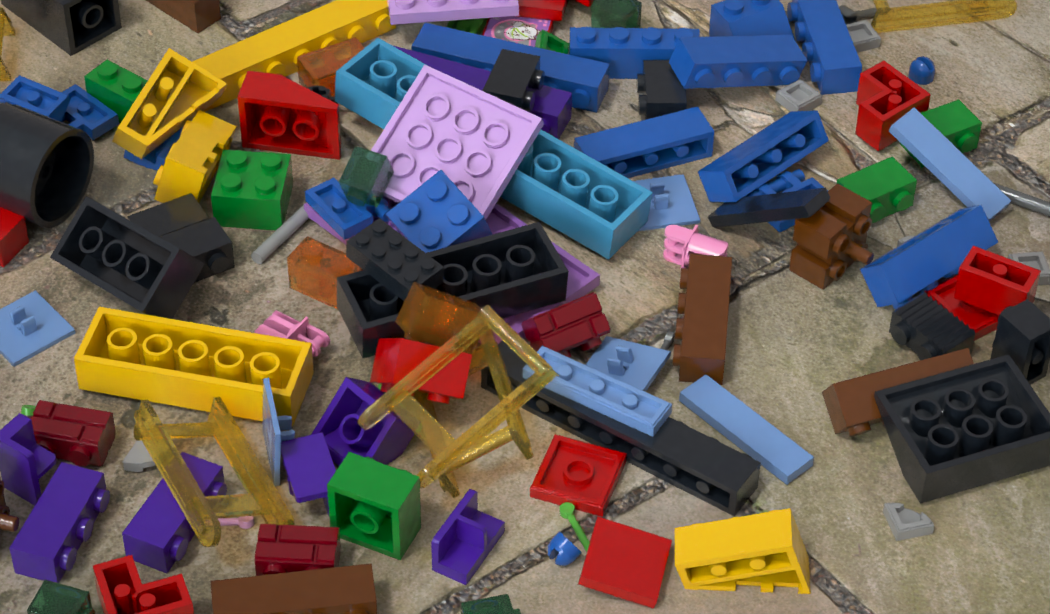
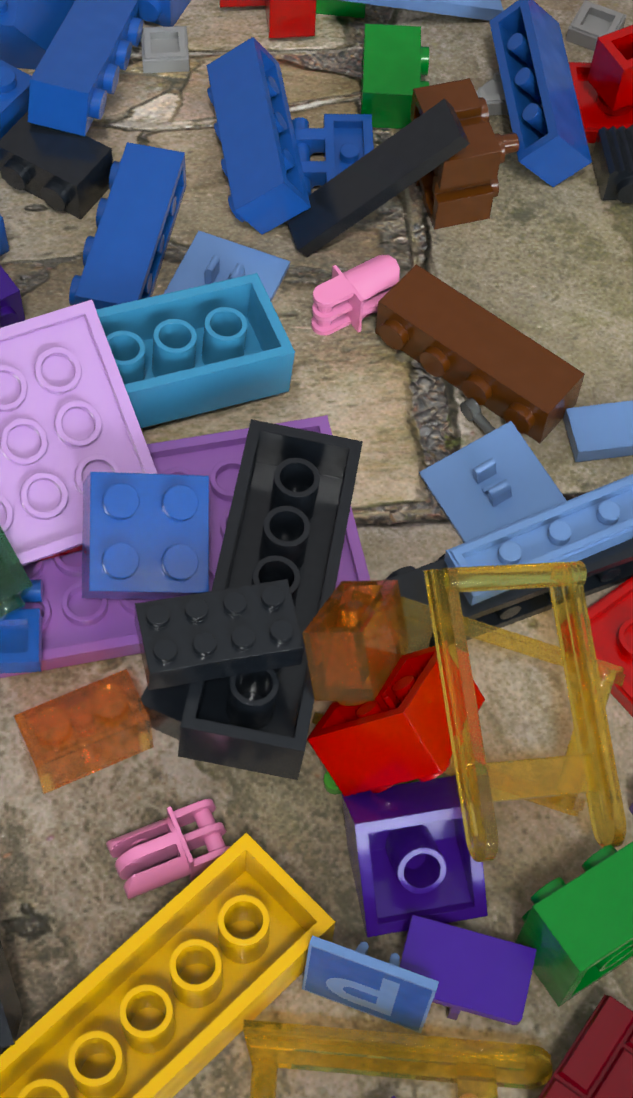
camera: 60 degrees left, 15 degrees up
(568, 326) = (400, 505): dark red brick -> none

